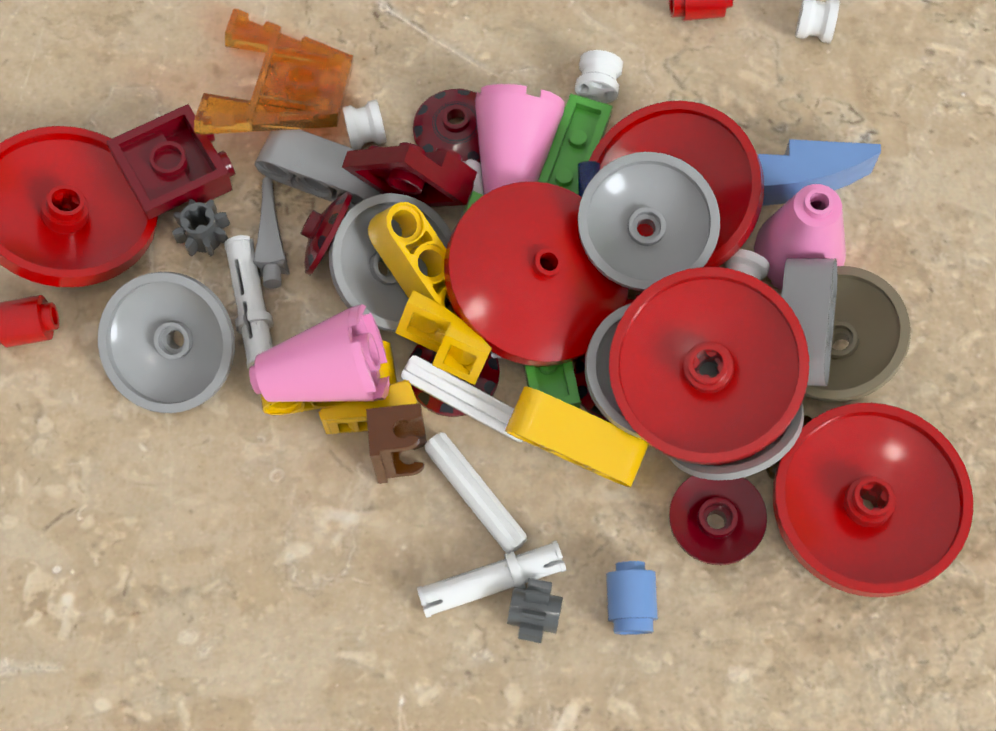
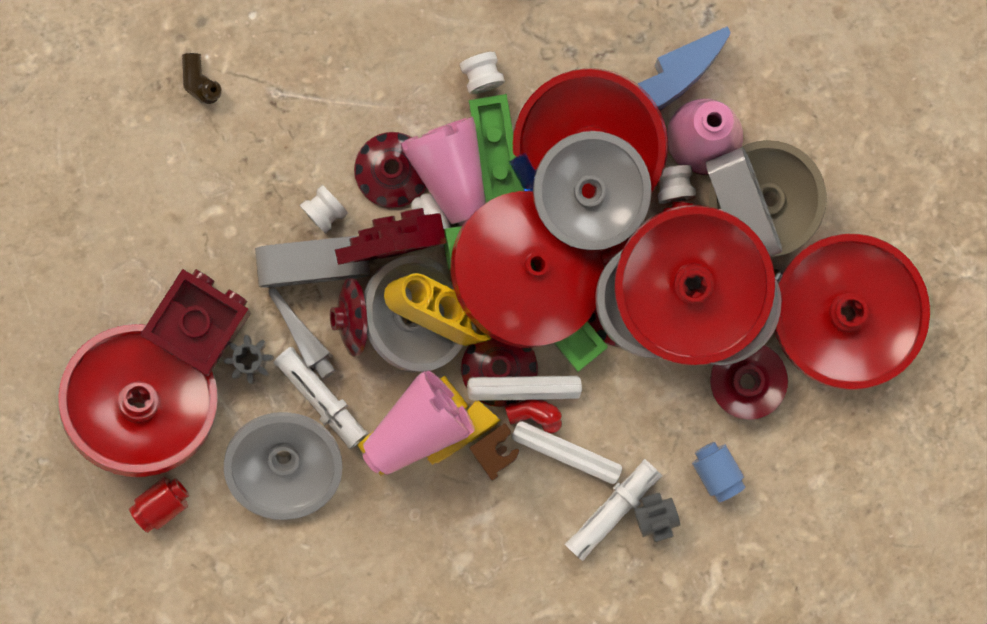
camera: 30 degrees left, 15 degrees up
(296, 88) = (255, 205): clear orange wing -> none
(438, 329) = (499, 357): yellow slope -> none
(468, 431) = (537, 410): none -> red arm
(576, 436) = (618, 378): yellow beam -> none

